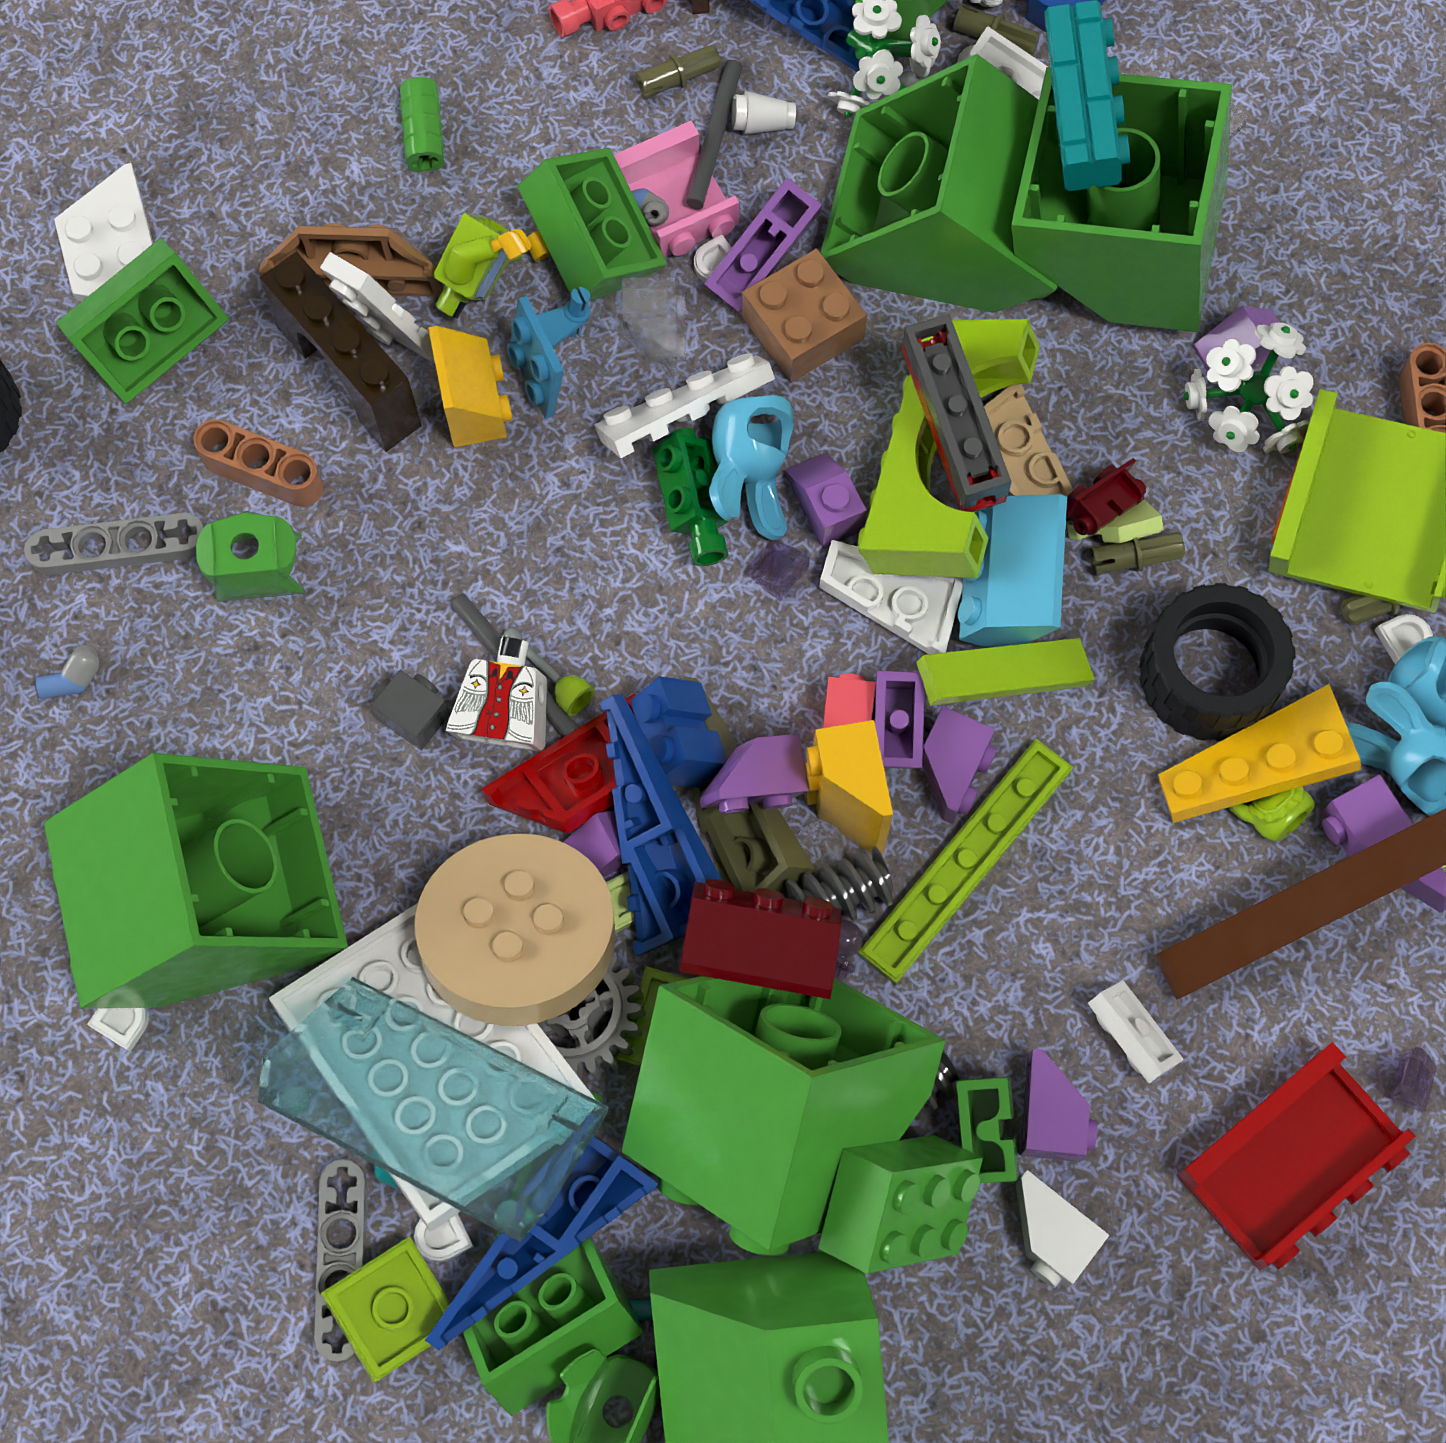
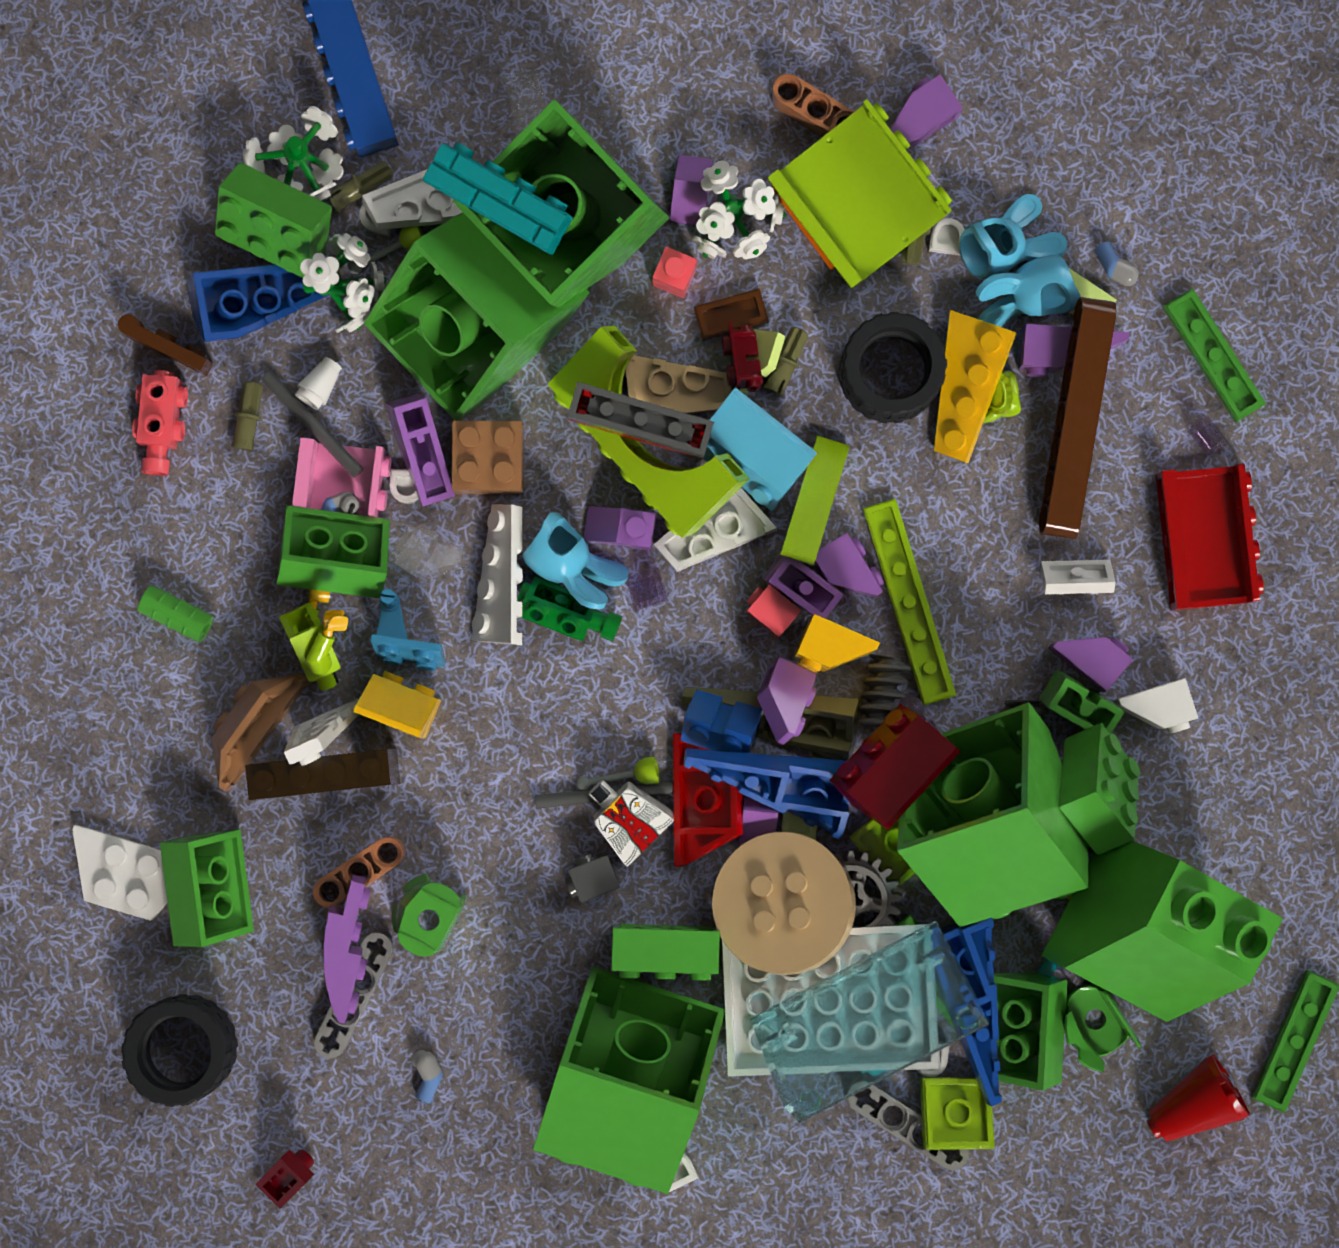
camera: 55 degrees left, 15 degrees up
(141, 492) = (341, 960): none -> medium lavender slope
(372, 830) = (665, 950): none -> bright green brick
(1143, 376) = (674, 272): none -> coral brick
(1159, 473) = (740, 309): none -> reddish brown tile

